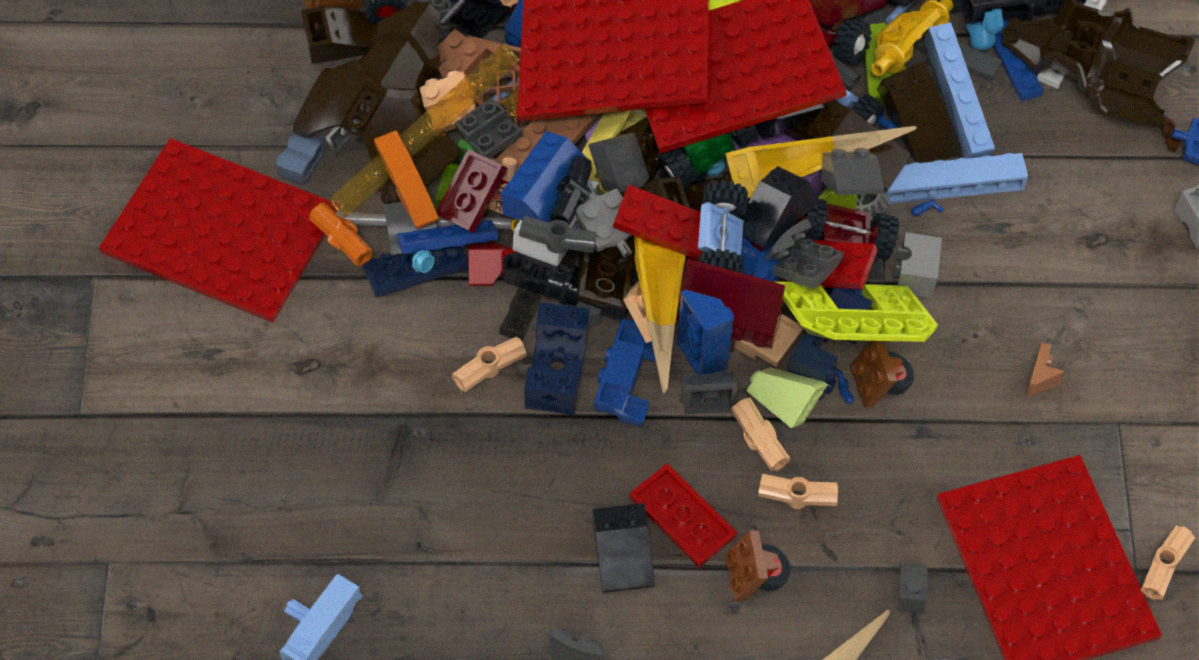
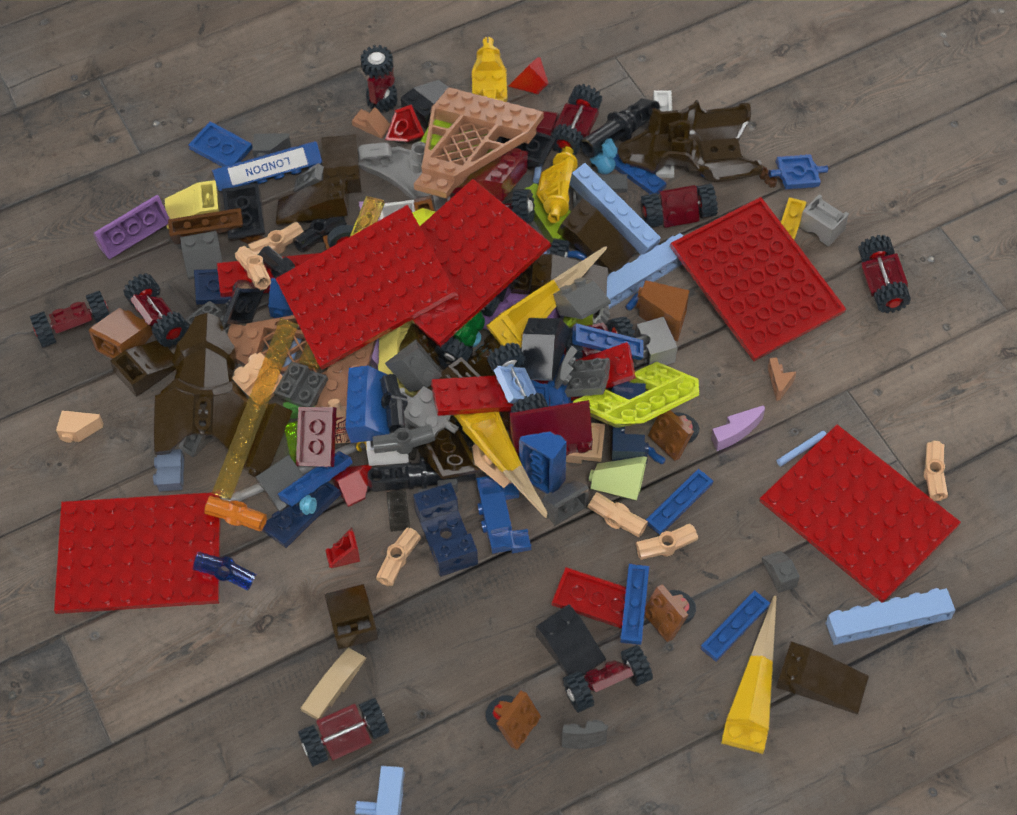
camera: 25 degrees left, 0 degrees up
(231, 65) = (77, 425): none -> light nougat slope
(286, 278) = (212, 565): none -> clear blue piece
(320, 519) = (343, 732): none -> plate
(341, 463) = (333, 683): none -> tan slope
(400, 403) = (351, 616): none -> dark brown slope
(406, 179) = (265, 450): orange slope -> none
(436, 331) = (343, 551): none -> red slope
(512, 596) = (513, 717): none -> dark orange plate
(652, 601) = (634, 667): none -> black plate
(718, 540) = (635, 604): none -> blue plate
(822, 620) = (735, 626): none -> blue plate
(841, 453) = (679, 501): none -> blue plate
(850, 229) = (603, 340): none -> blue plate
(956, 224) = (663, 301): none -> dark orange slope
(959, 403) = (736, 427): none -> lavender slope
(1020, 462) = (800, 449): none -> light blue bar
(1040, 122) = (679, 205): none -> plate
(1084, 246) = (757, 278): none -> red plate
(1163, 201) = (792, 216): none -> yellow plate

